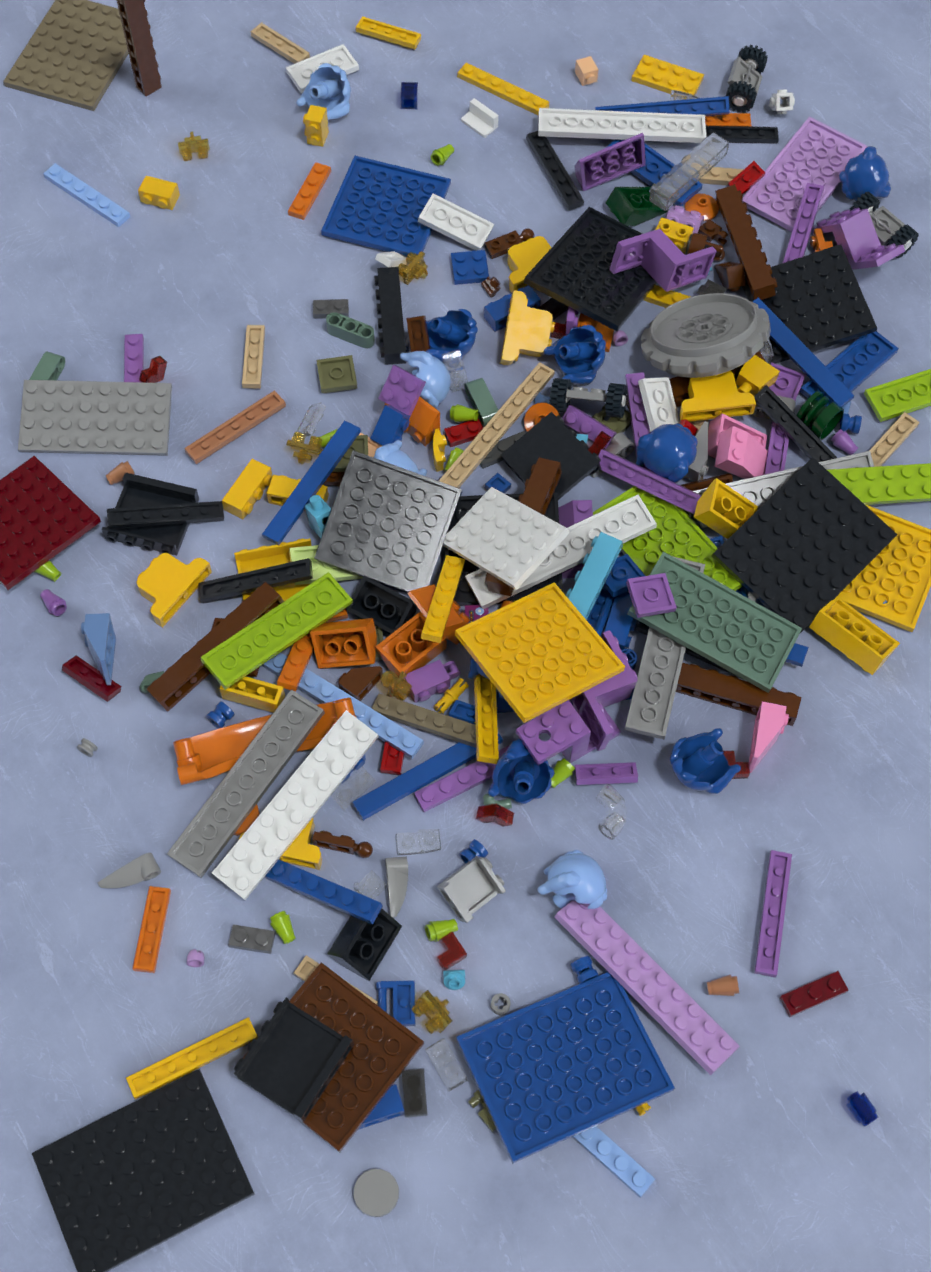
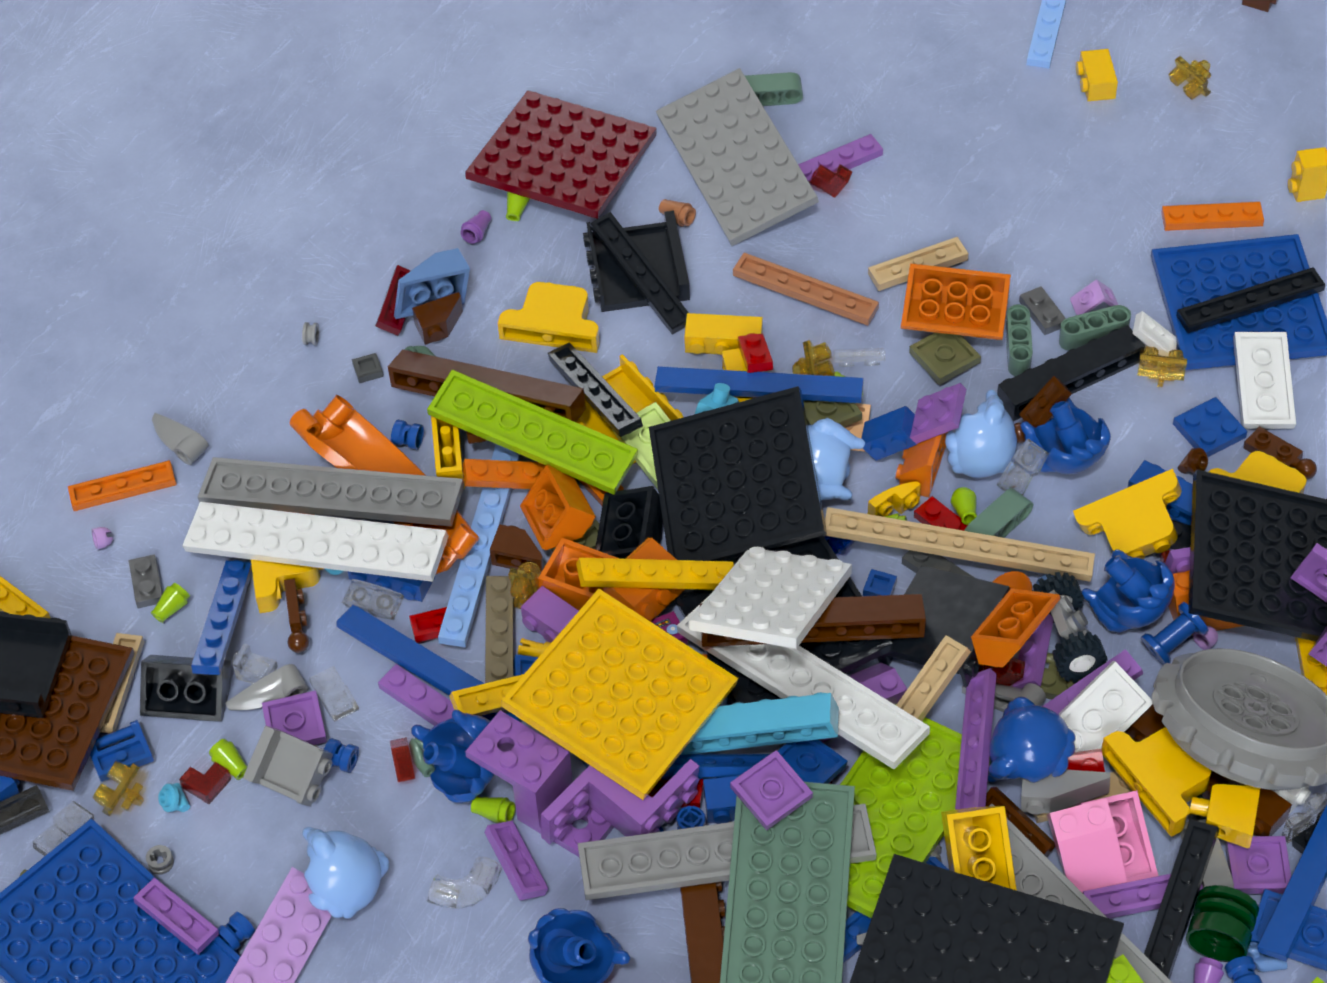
camera: 70 degrees right, 10 degrees down
(125, 659) = (438, 317): none -> reddish brown slope
(139, 721) = (367, 368): none -> dark grey tile
(285, 472) = (755, 353): none -> red plate
(304, 348) = (956, 301): none -> orange slope
(339, 280) = (1091, 297): none -> lavender bracket
(364, 287) = (1092, 325): none -> sand green beam
(392, 201) = (1250, 300): none -> black tile
(427, 873) = (297, 716): none -> medium lavender plate
(564, 1002) = (176, 916): none -> medium lavender plate
(588, 418) = (1011, 625): none -> orange slope
(598, 480) = (933, 678): none -> tan plate
(616, 348) = (1174, 634): none -> blue piece

